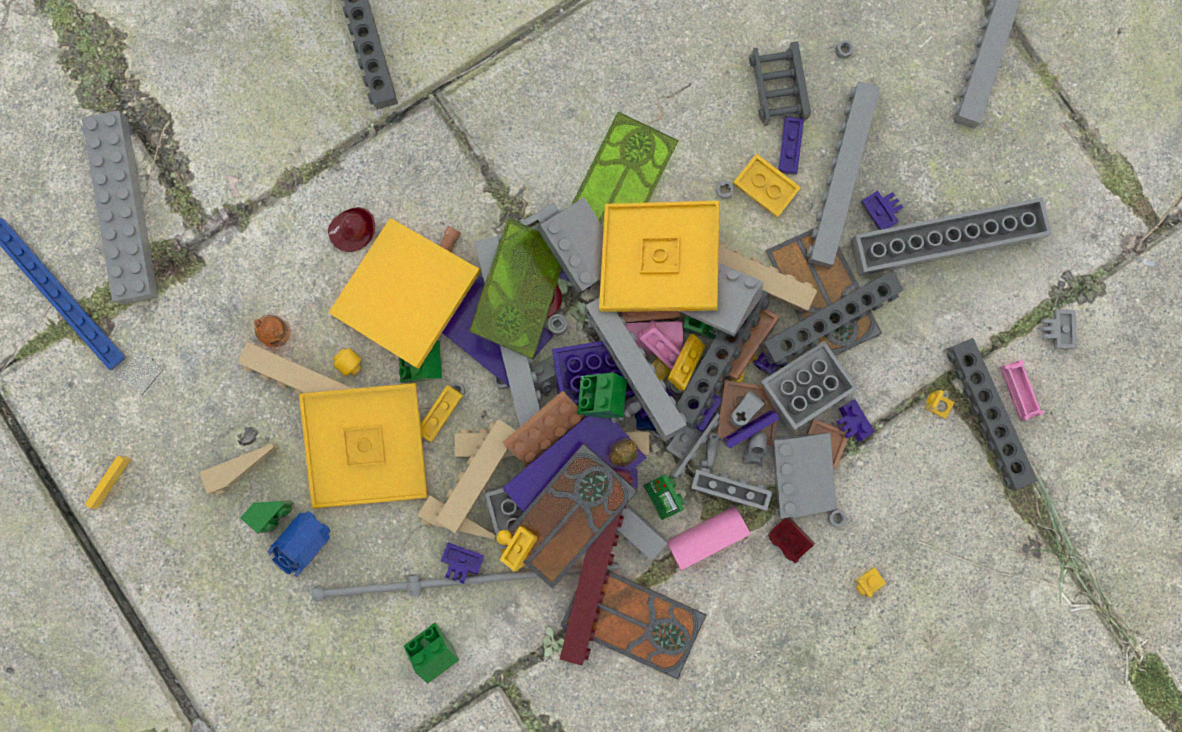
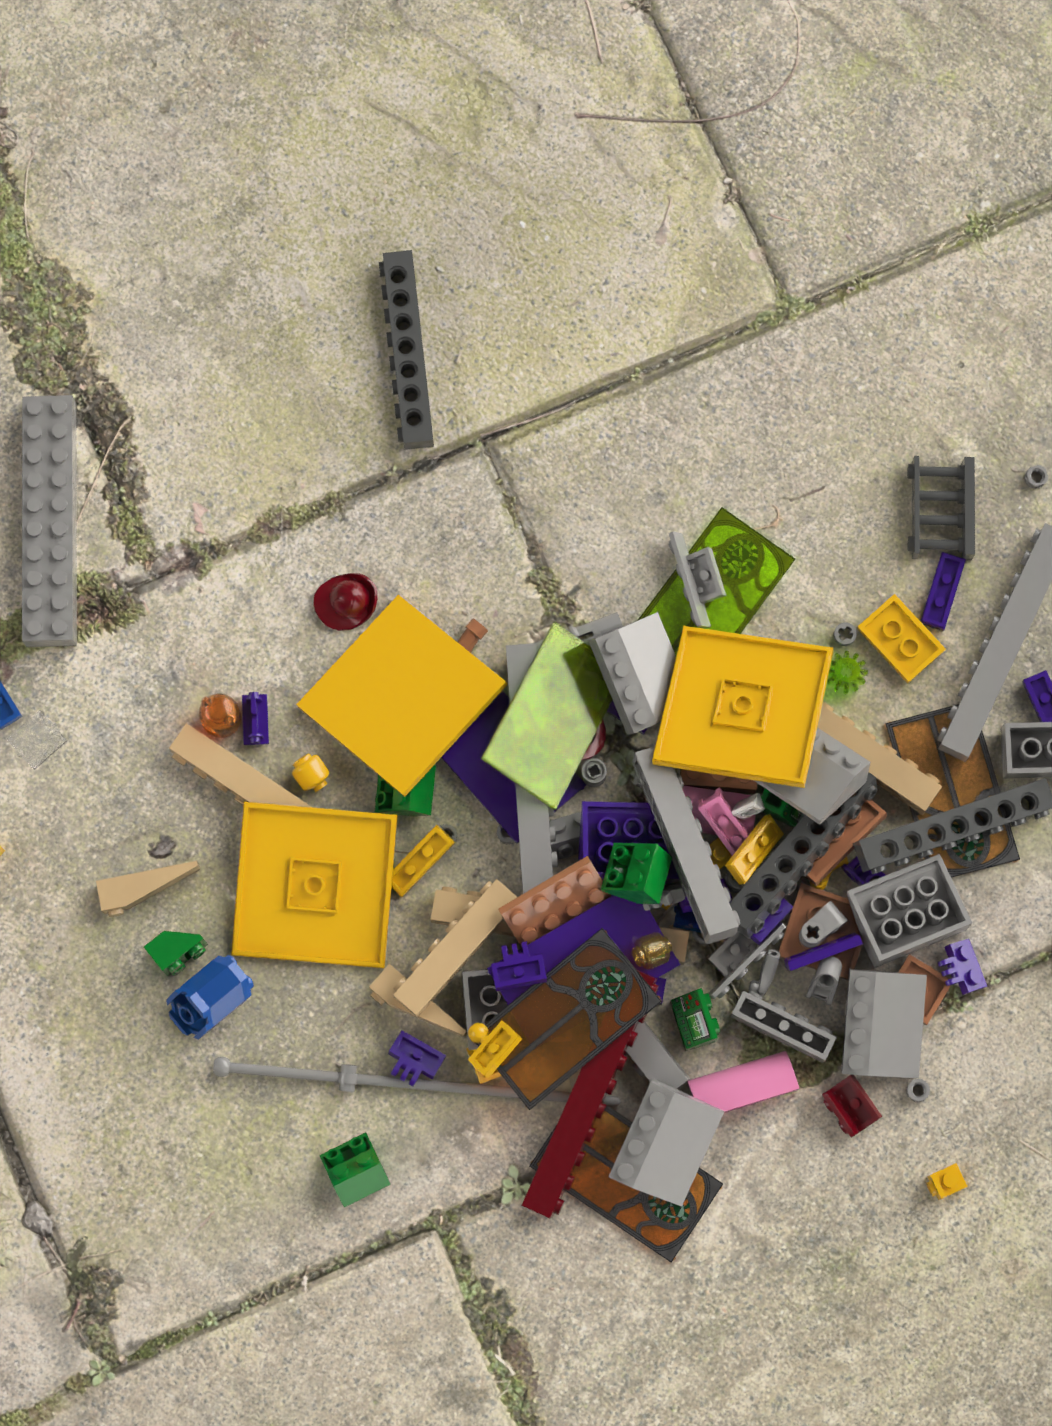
camera: 10 degrees right, 5 degrees down
(300, 329) = (255, 719): none -> dark purple hinge
(525, 484) = (518, 969): none -> dark purple hinge
(610, 165) = (699, 577): none -> light grey bracket
(659, 594) = (666, 1143): none -> light grey slope
(677, 330) = (748, 807): none -> white slope
(730, 210) = (855, 677): none -> clear neon green gear

